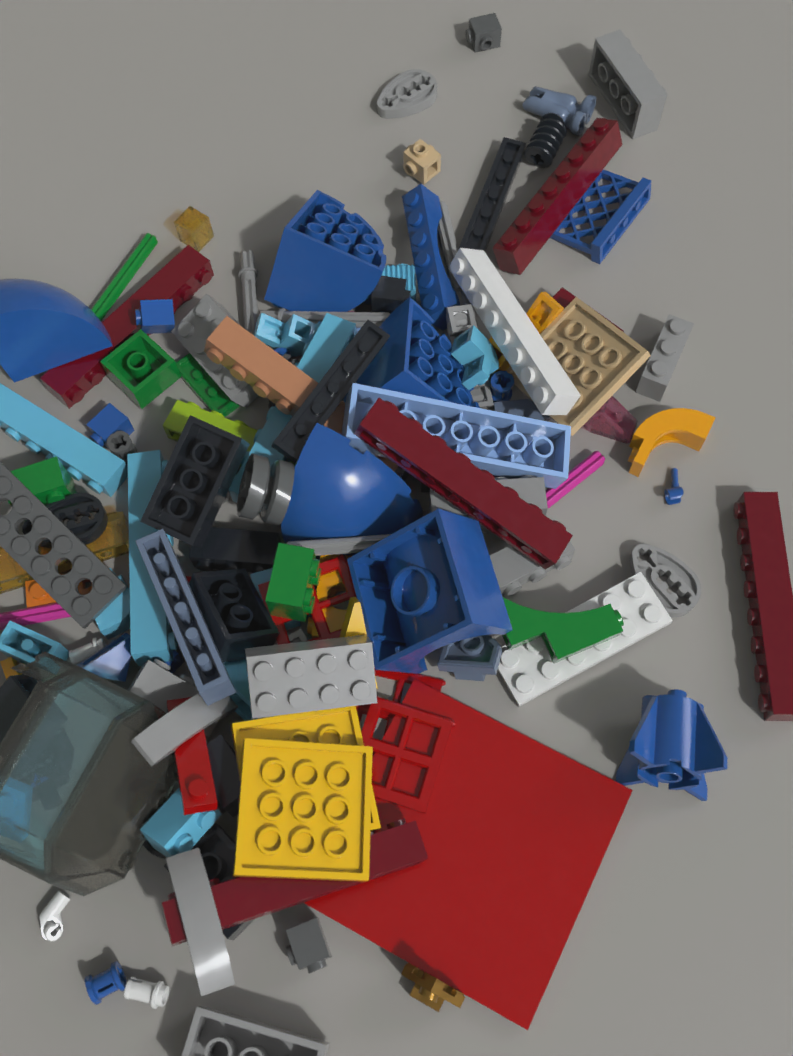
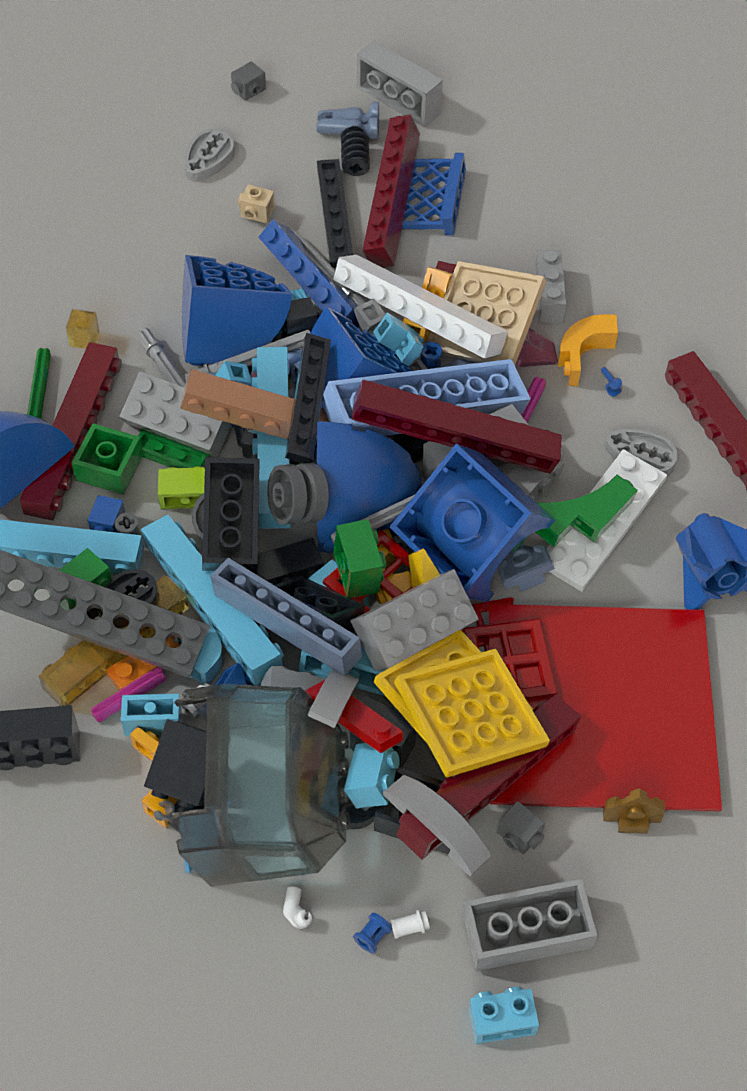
camera: 30 degrees left, 10 degrees down
(155, 316) = (100, 408): blue brick -> none

